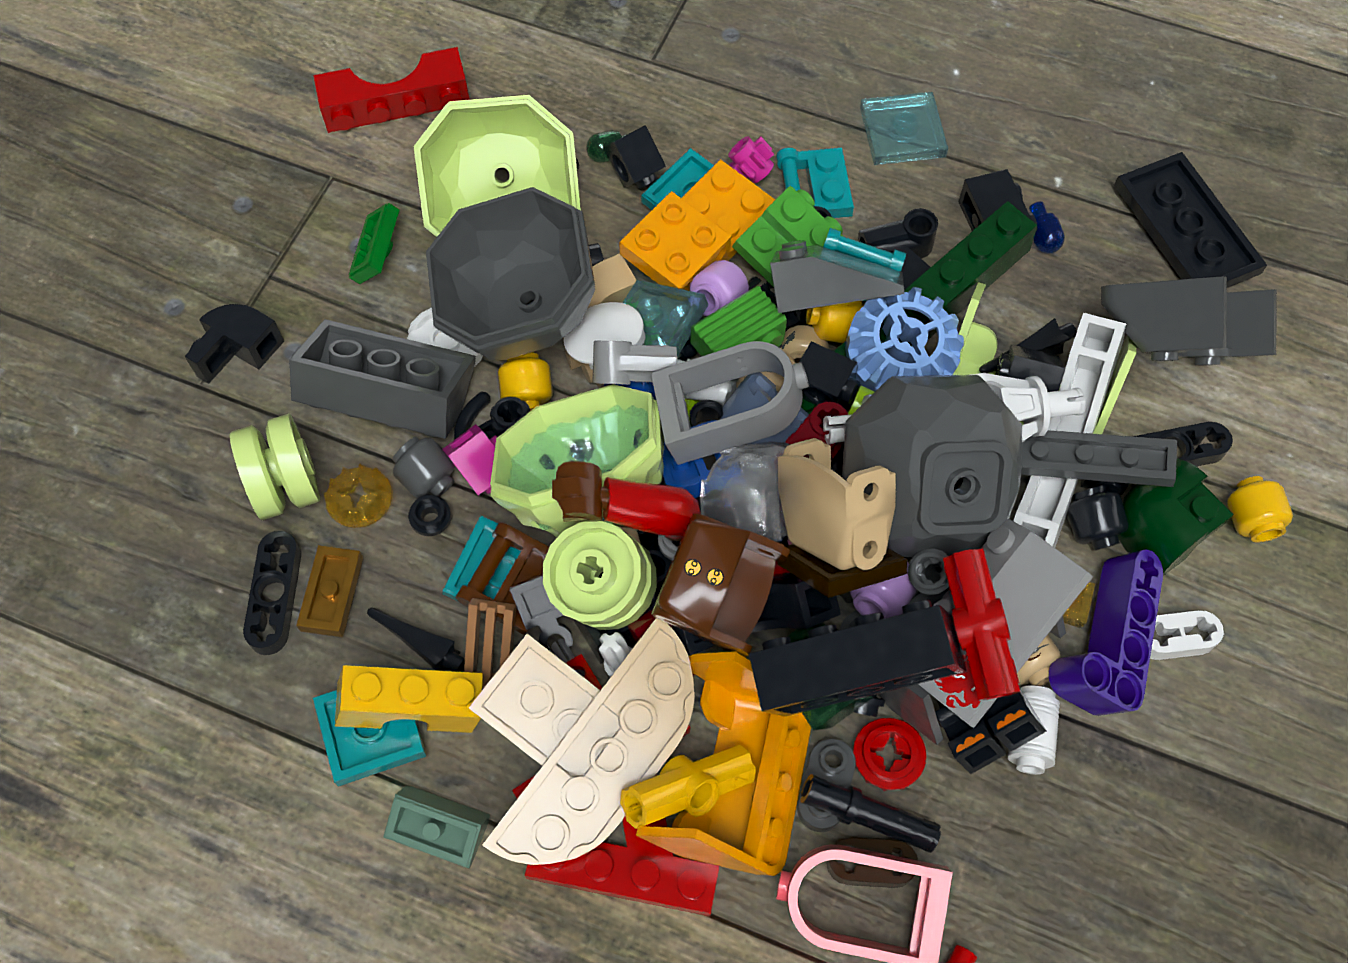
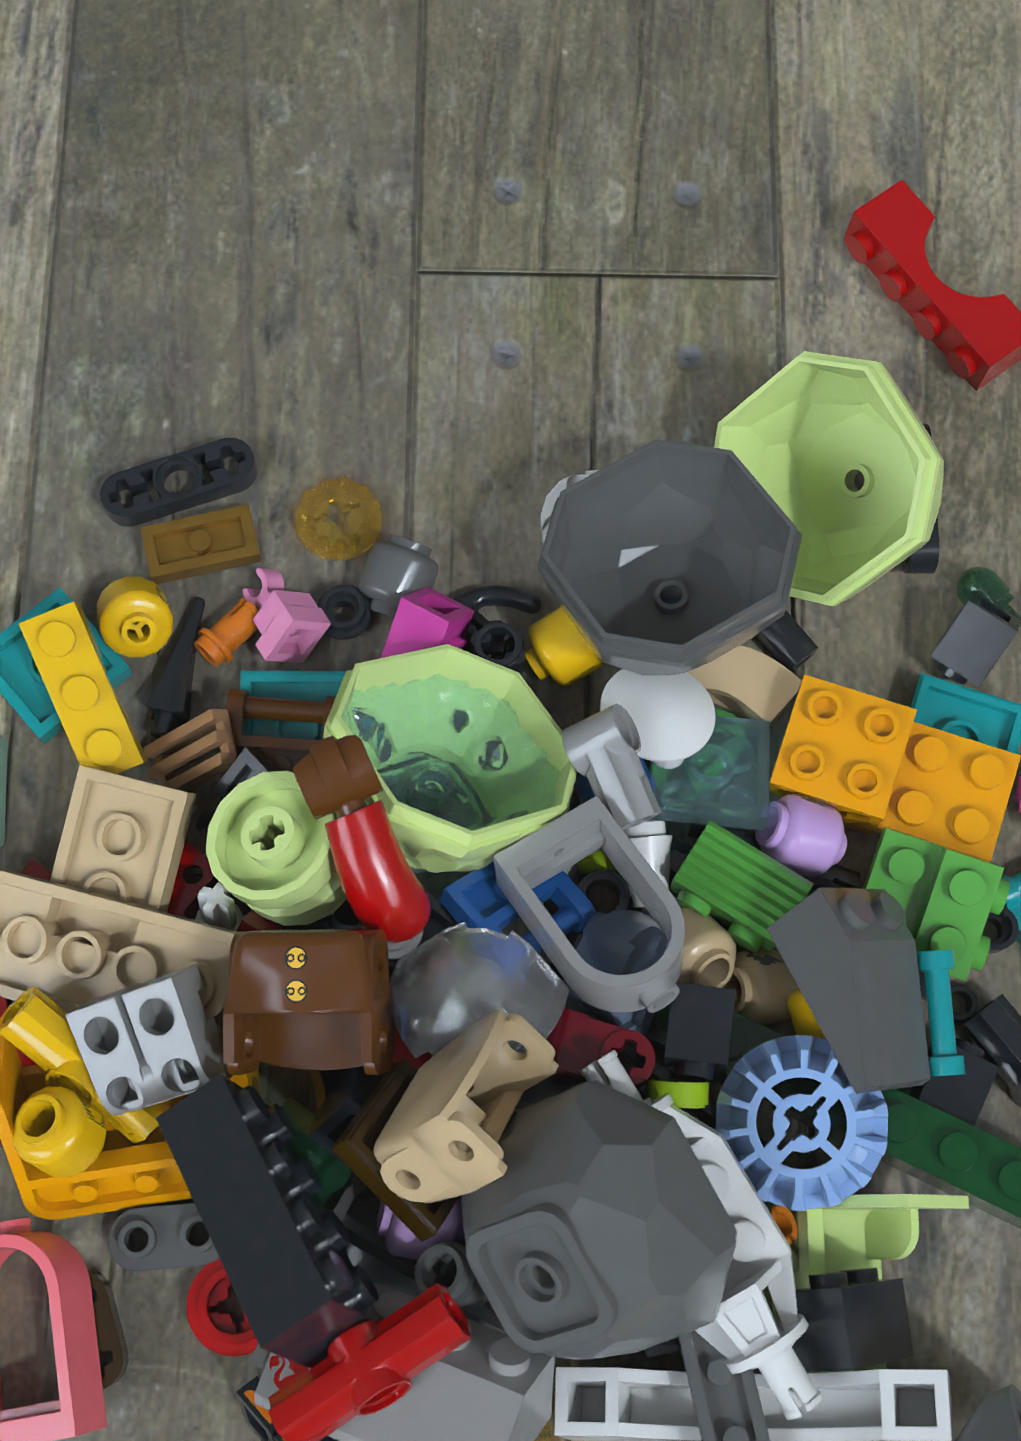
camera: 65 degrees right, 10 degrees up
(230, 333) = (487, 270): black brick -> none
(268, 469) = (317, 406): yellowish green wheel -> none
(365, 644) = (134, 617): none -> yellow head
(374, 243) = (691, 373): green plate -> none
(381, 378) = (494, 466): dark grey slope -> none
(410, 603) = (227, 634): none -> orange pin
(416, 549) = (286, 619): none -> bright pink piece
(716, 719) = (149, 1042): none -> light grey hips
(718, 817) = (58, 1131): none -> yellow head
(854, 807) = (139, 1291): black pin -> none
(1048, 339) = (943, 1329): black piece -> none

